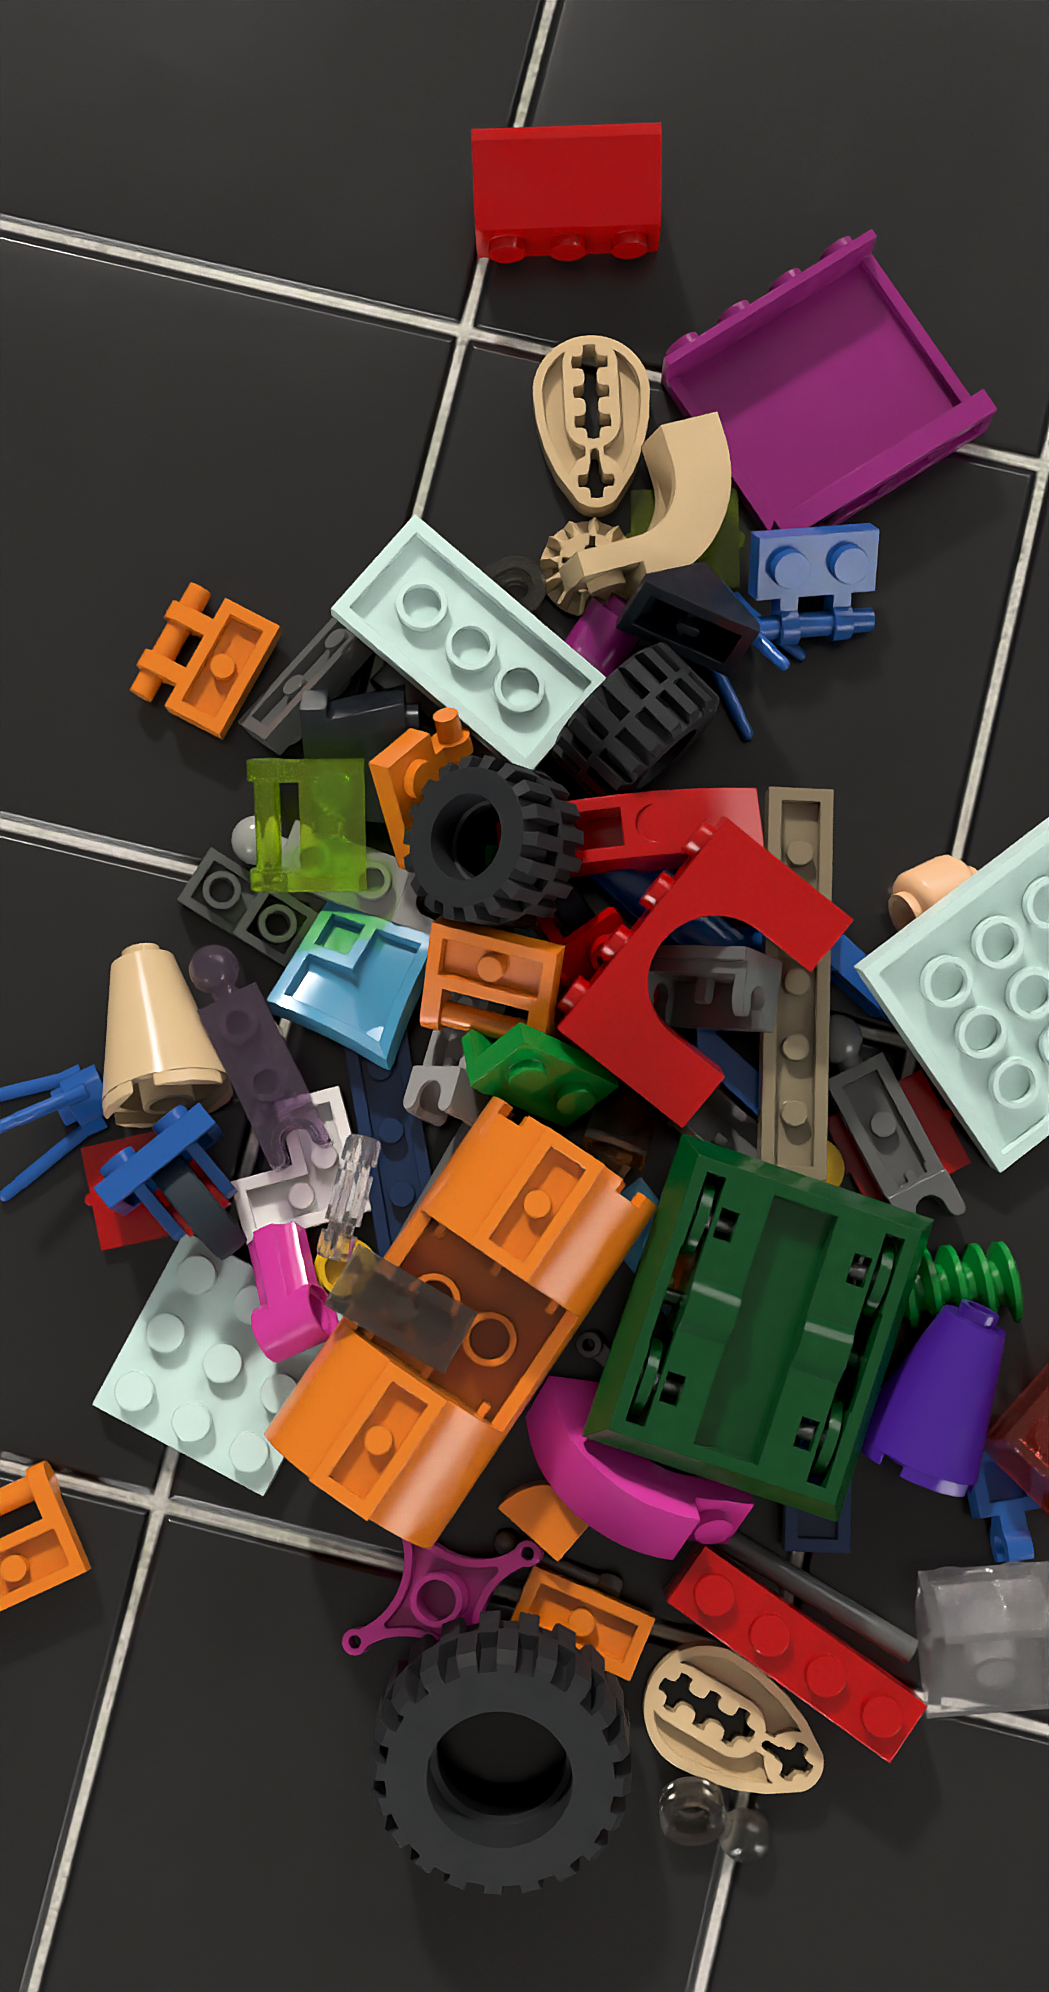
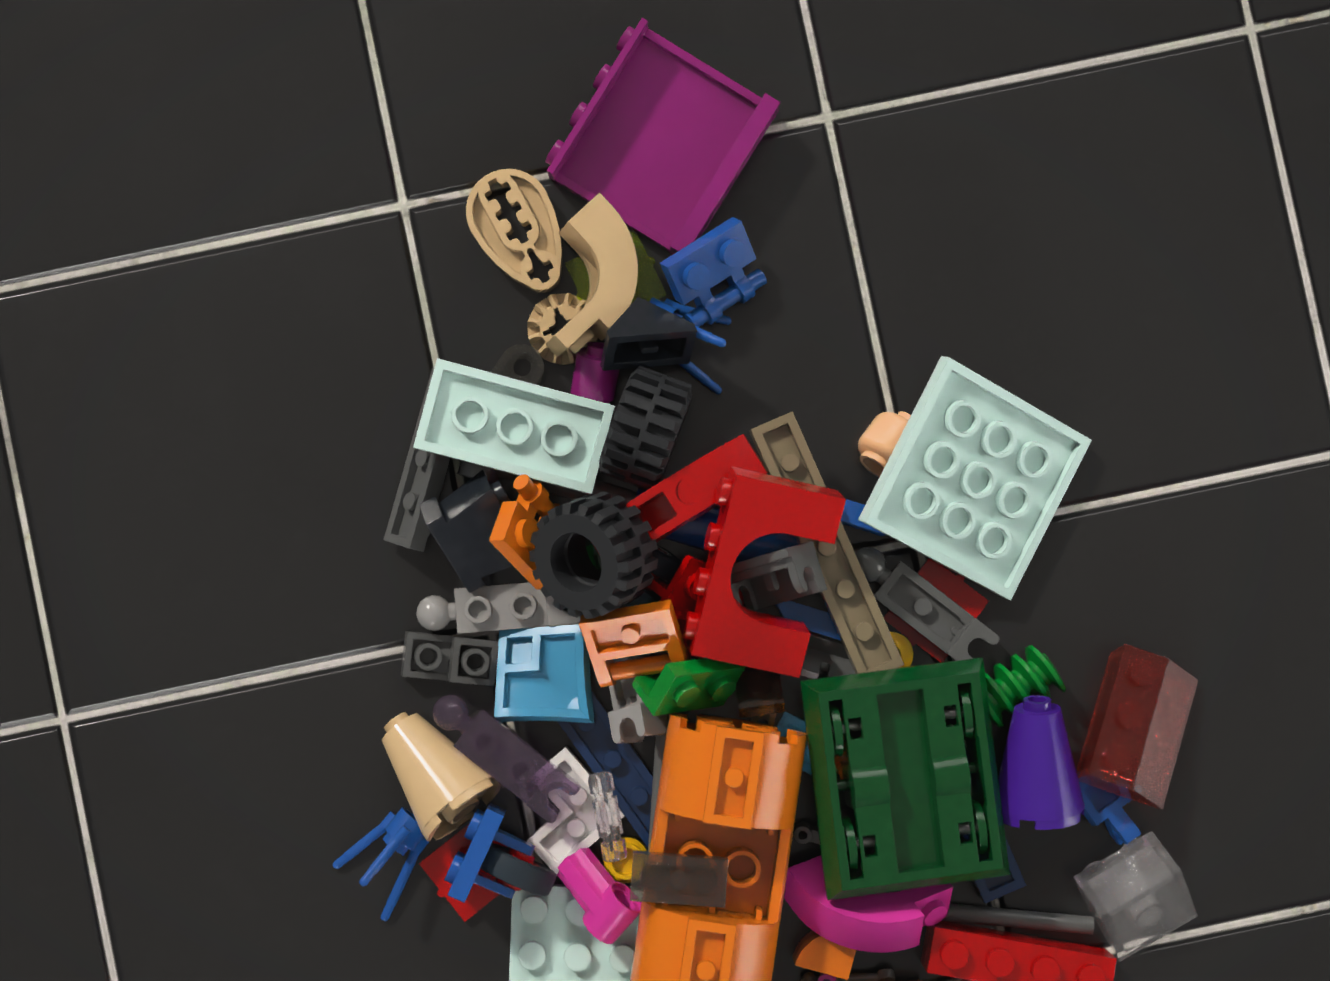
camera: 25 degrees left, 5 degrees up
(222, 667) = (356, 509): orange plate -> none
(329, 825) = (480, 586): clear neon green plate -> none
(567, 191) = (429, 87): red slope -> none

